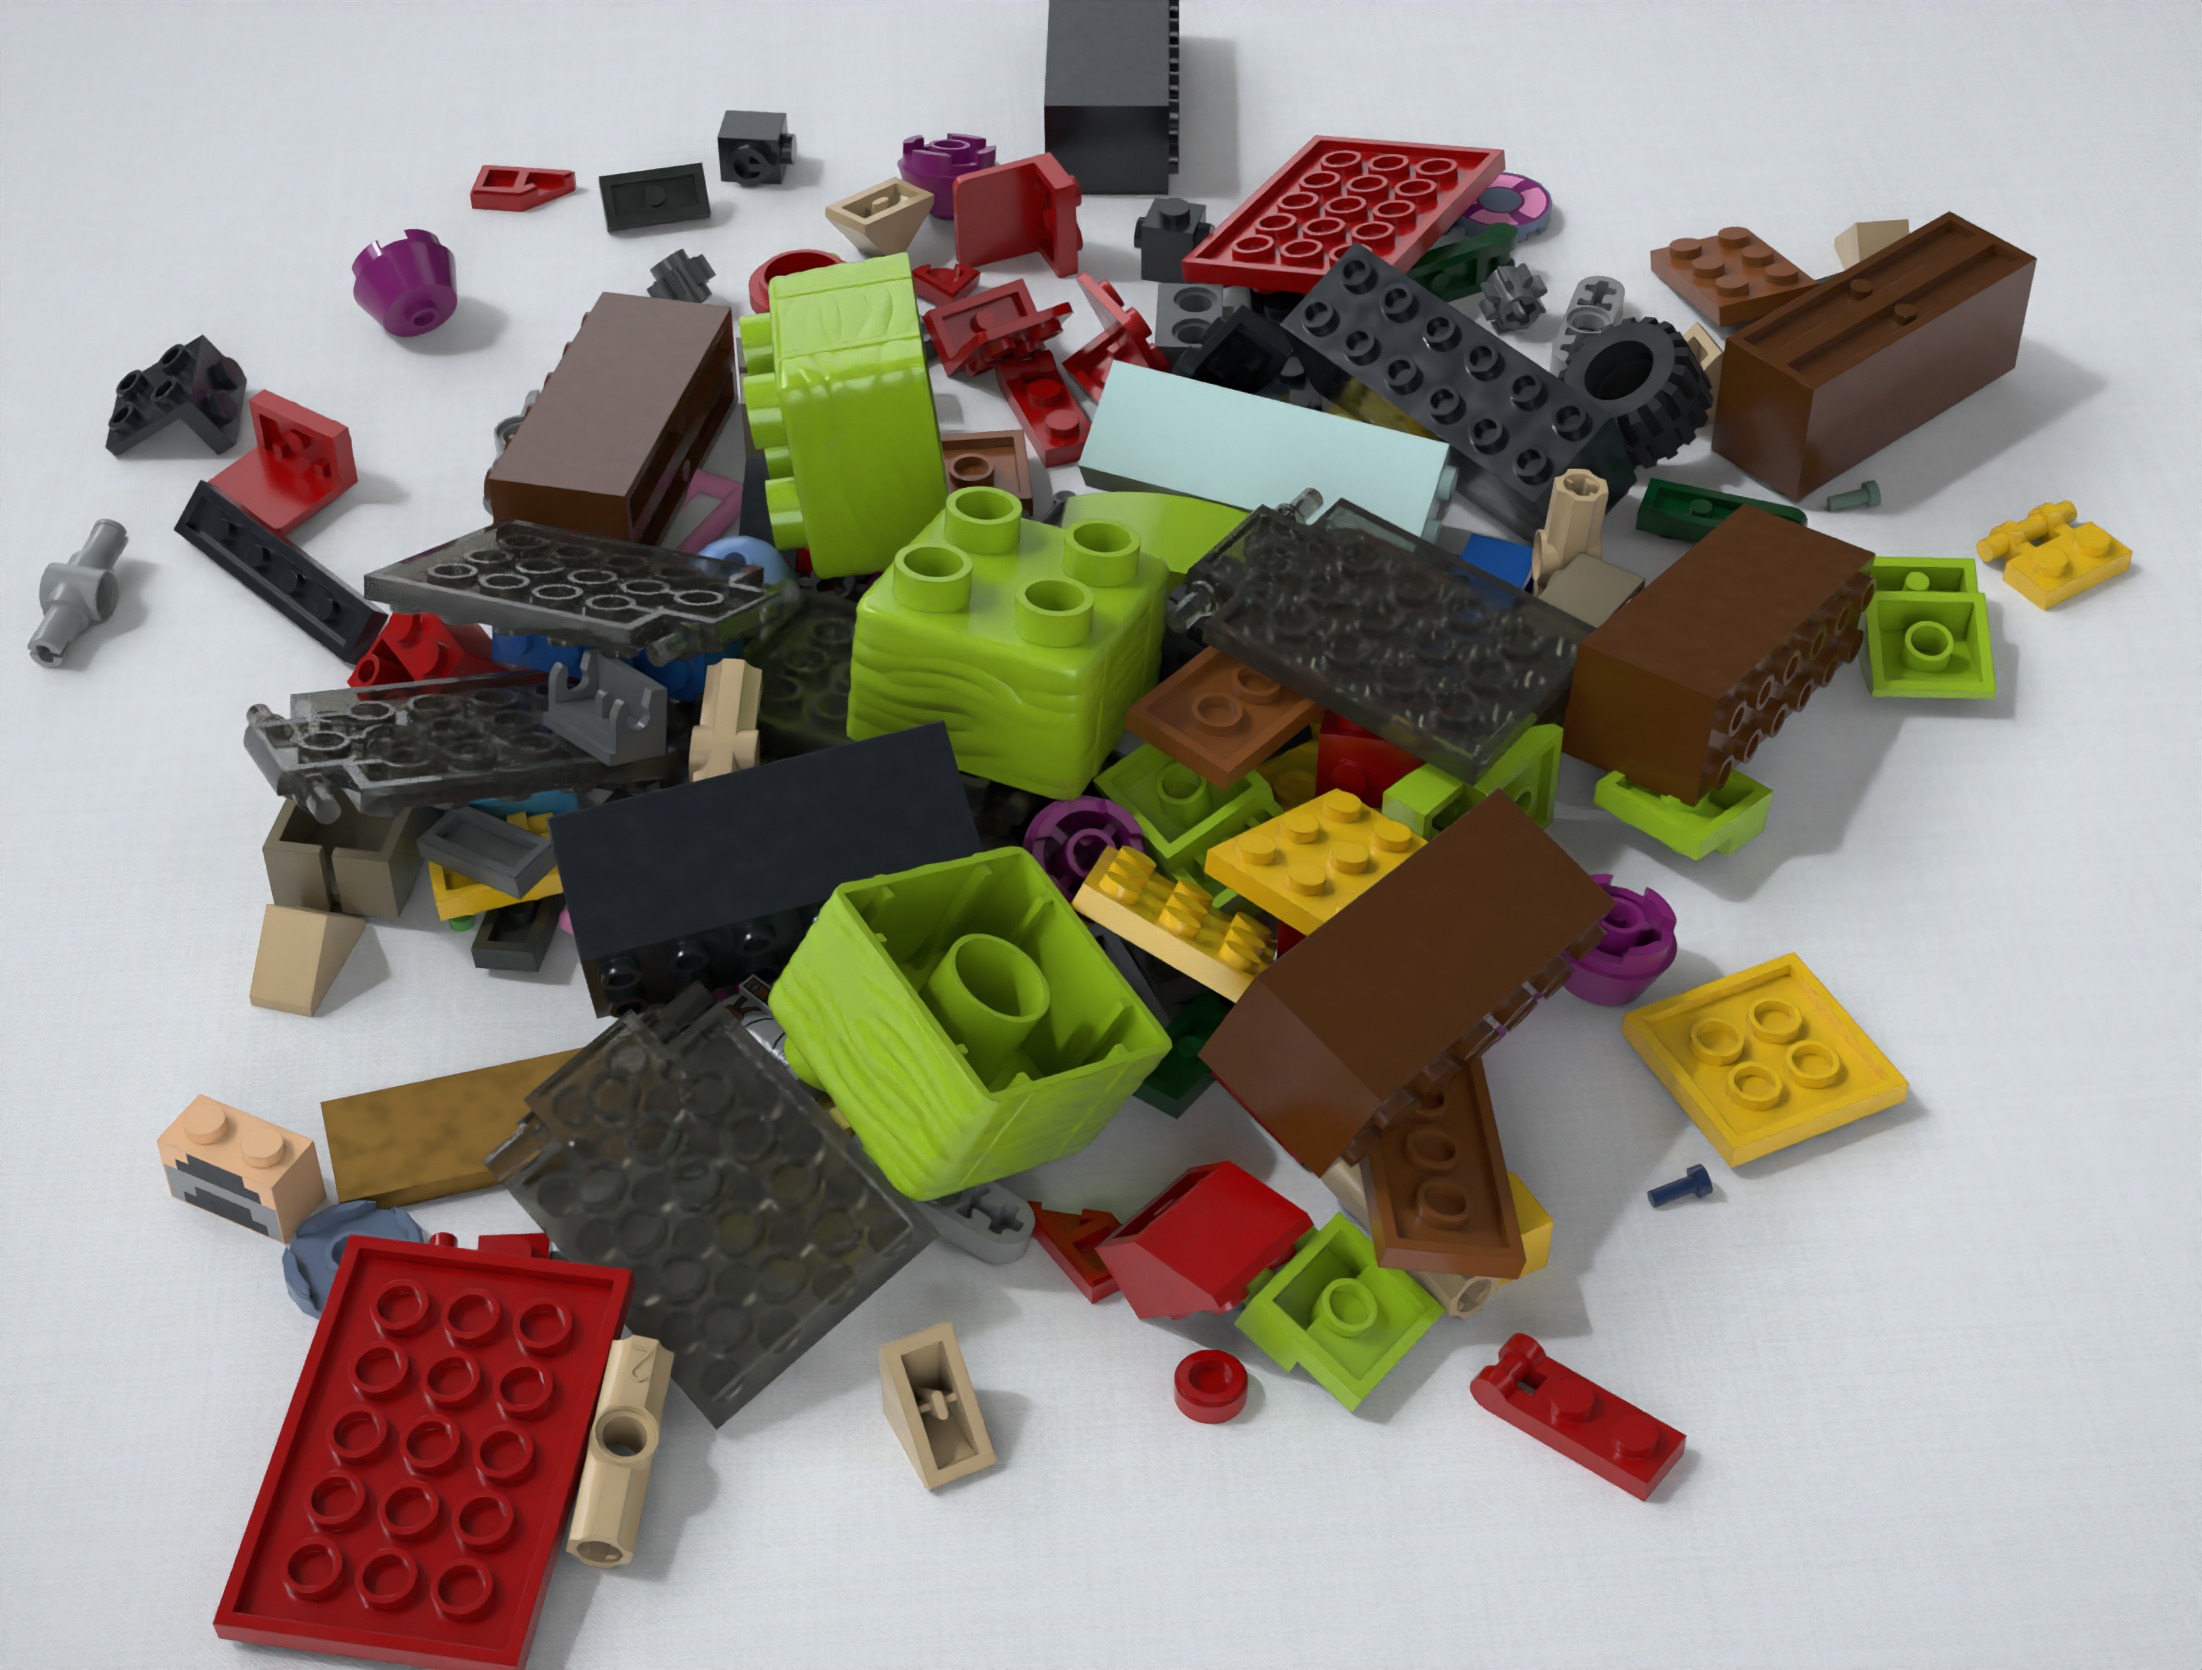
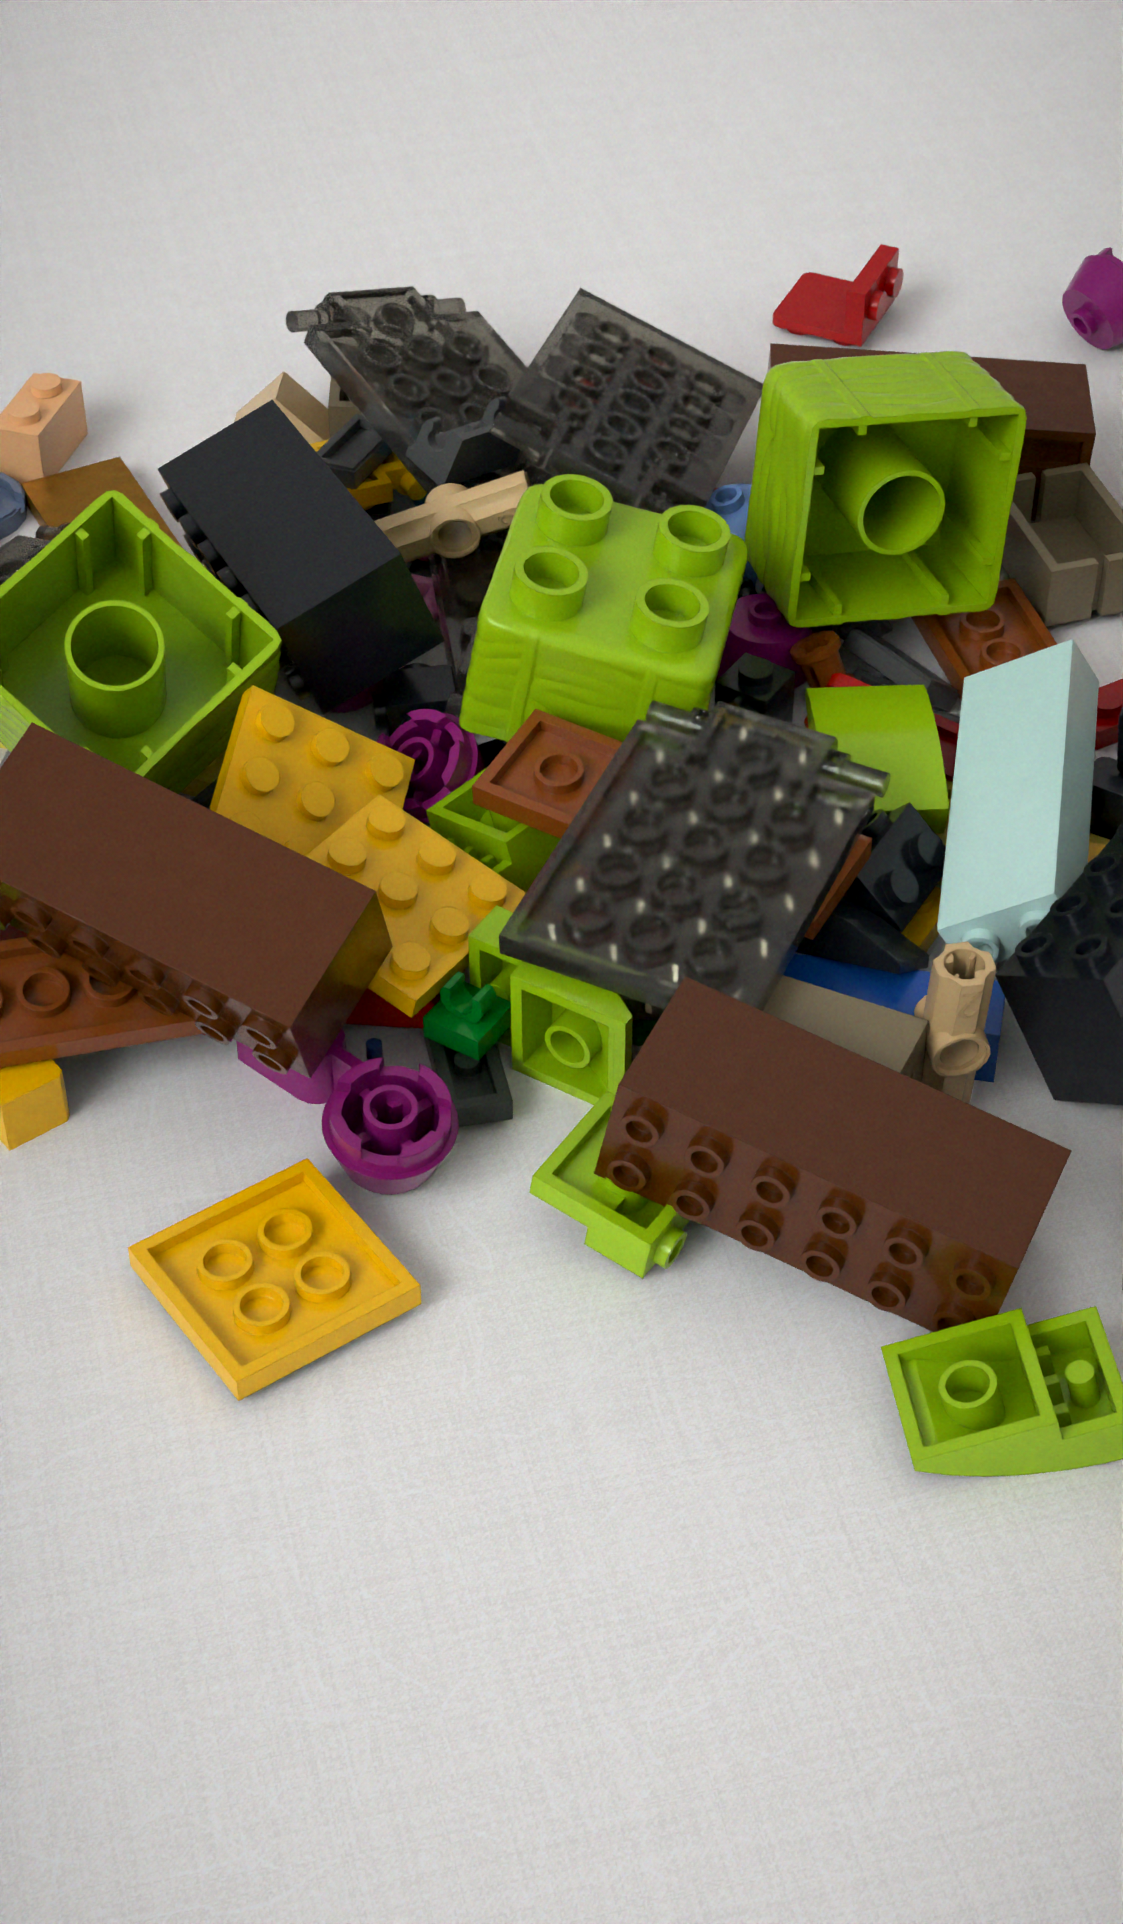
camera: 80 degrees right, 0 degrees up
(78, 593) = (636, 249): light grey pin -> none
(186, 384) = (928, 243): black bracket -> none
(281, 573) = (742, 307): black plate -> none
(1695, 1182) = (108, 1240): dark blue piece -> none

